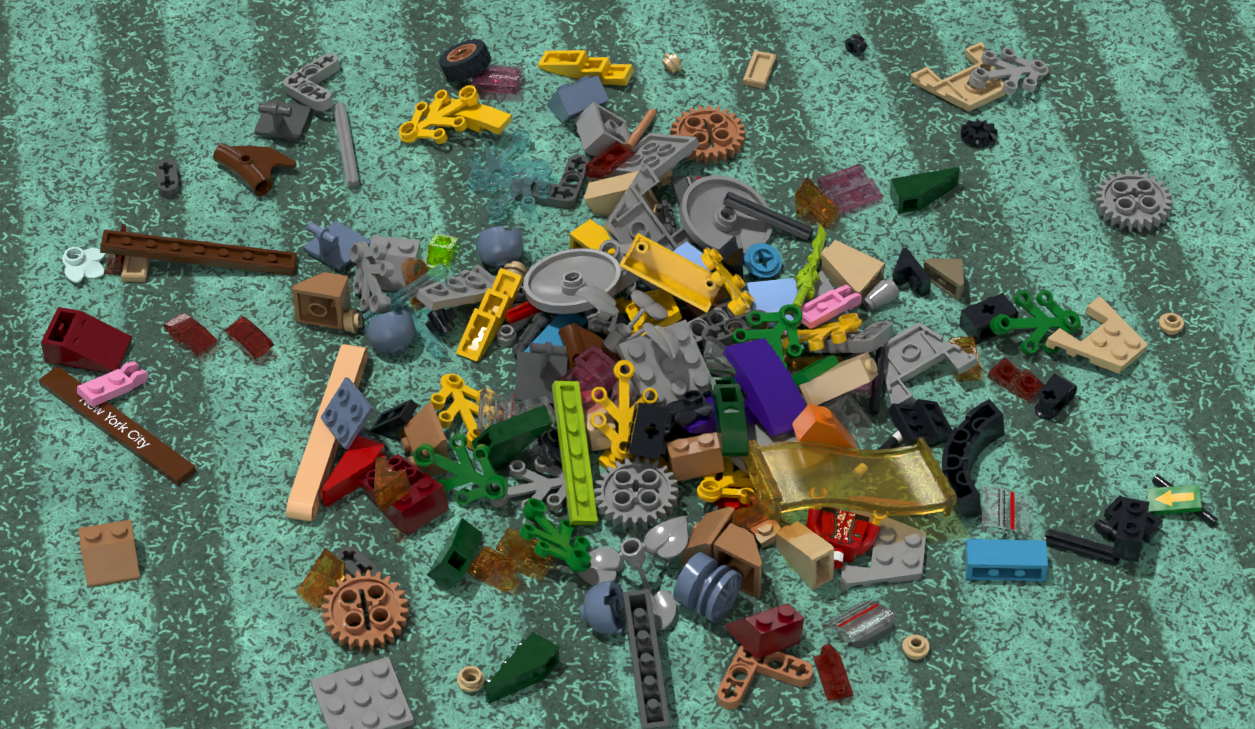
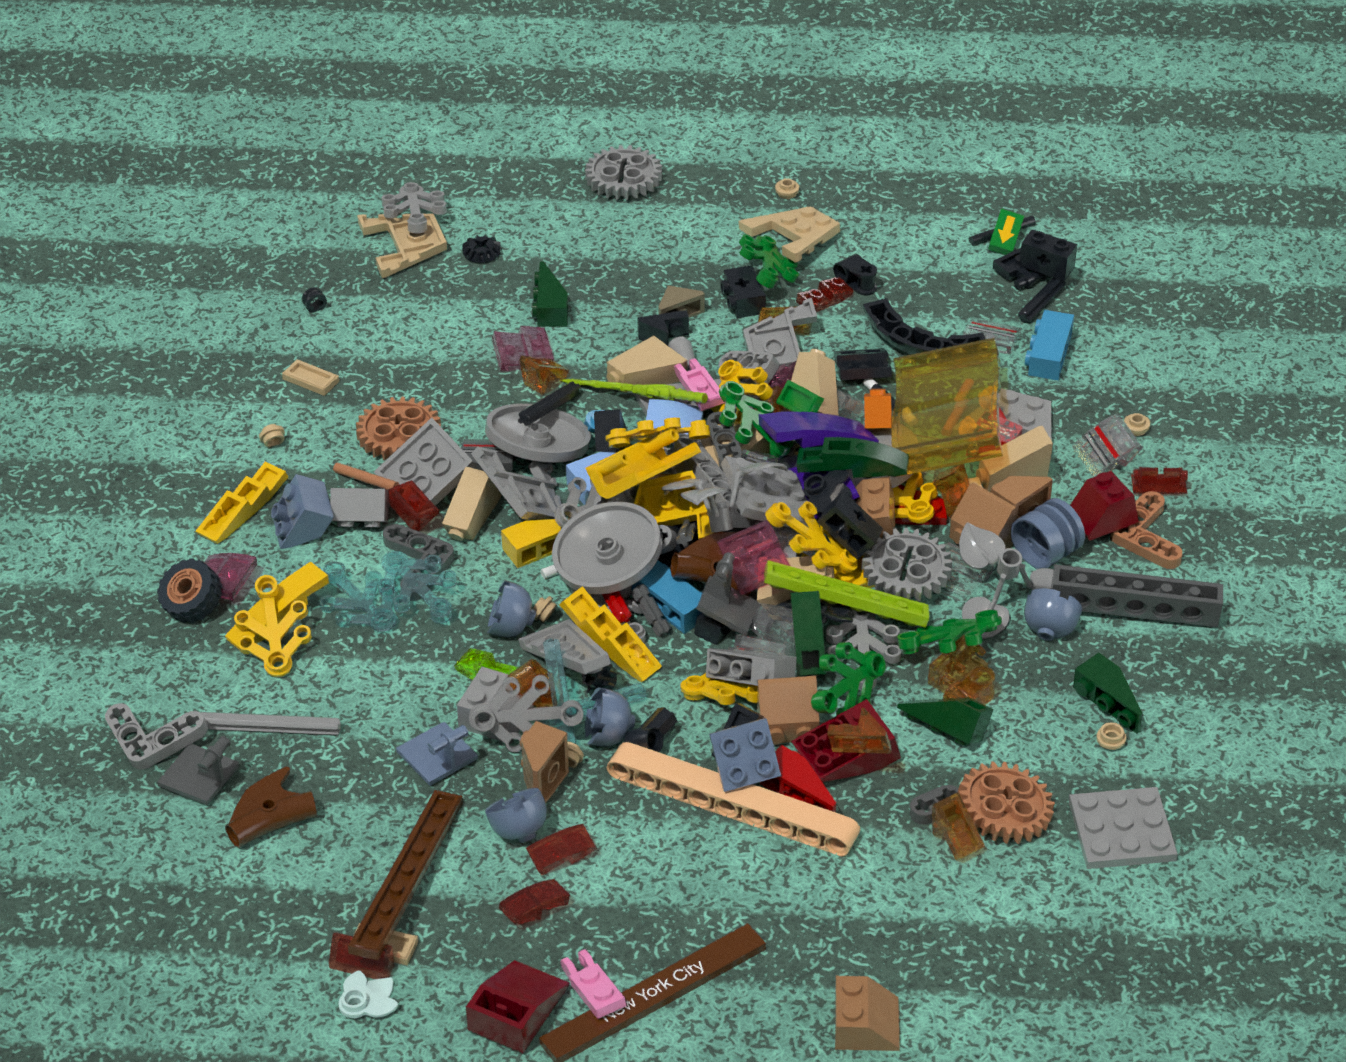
camera: 75 degrees left, 5 degrees down
(163, 179) = (250, 896): dark grey beam -> none
(269, 300) = (519, 815): none -> sand blue cylinder
(389, 365) = (653, 730): none -> black piece
(463, 407) = (748, 666): none -> light grey slope

